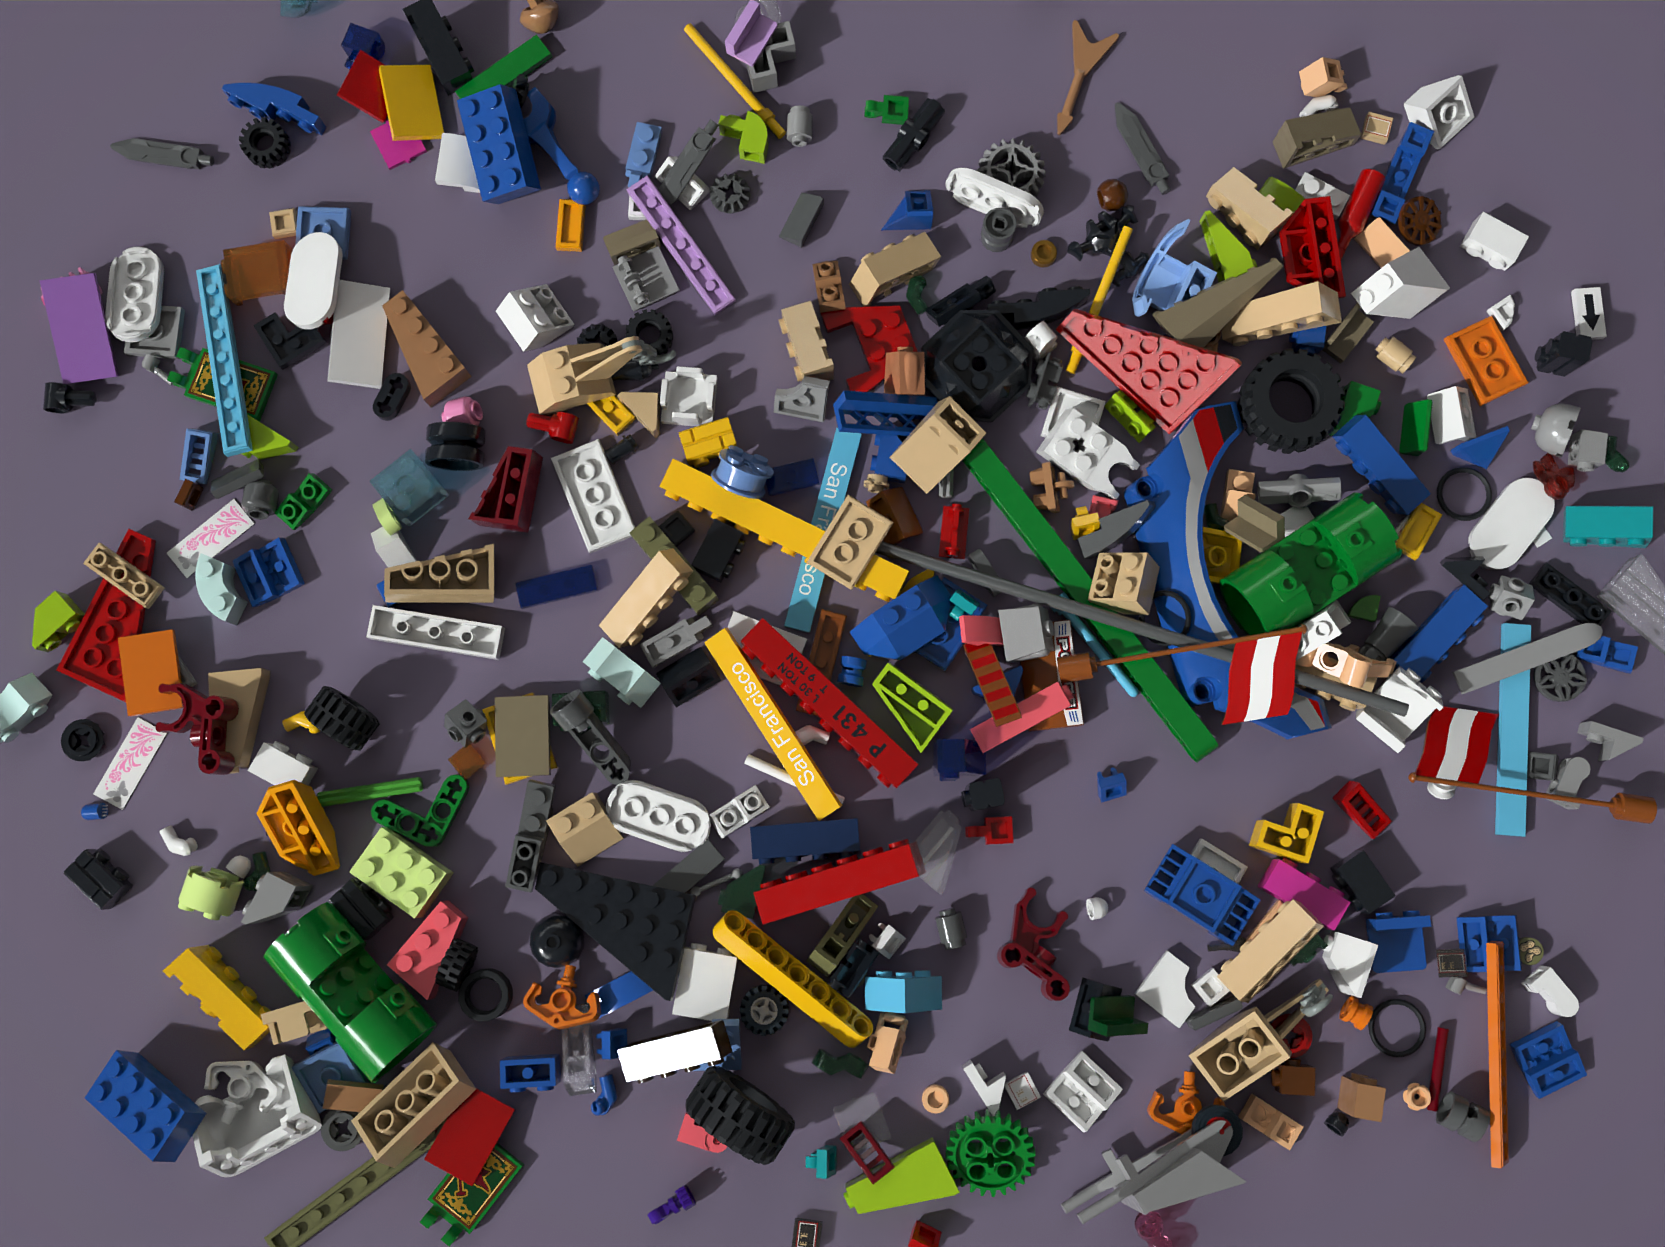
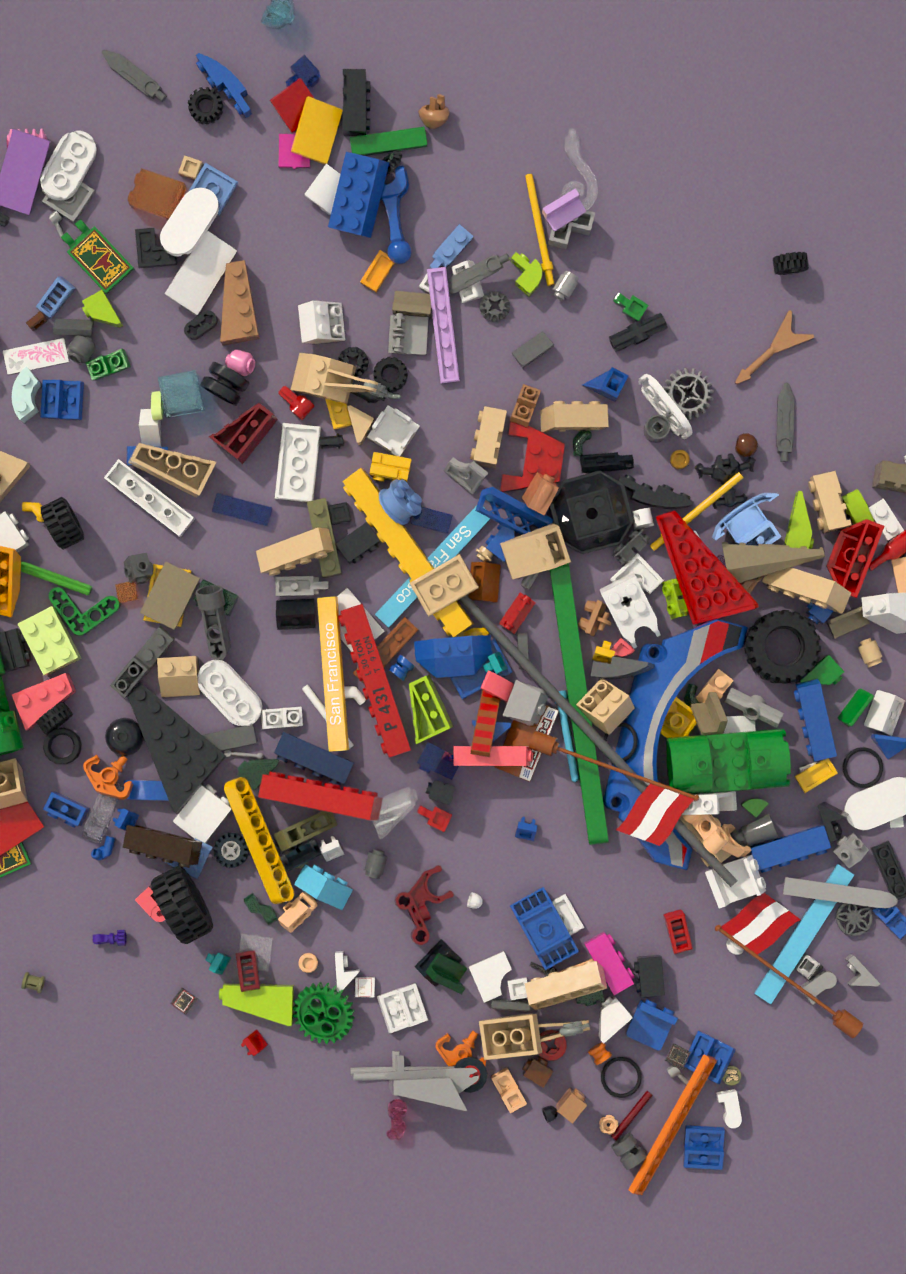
camera: 25 degrees right, 5 degrees up
(224, 361) = (104, 243): medium azure tile -> none
(621, 672) = (254, 589): light aqua brick -> none
(1293, 839) = (623, 925): yellow brick -> none

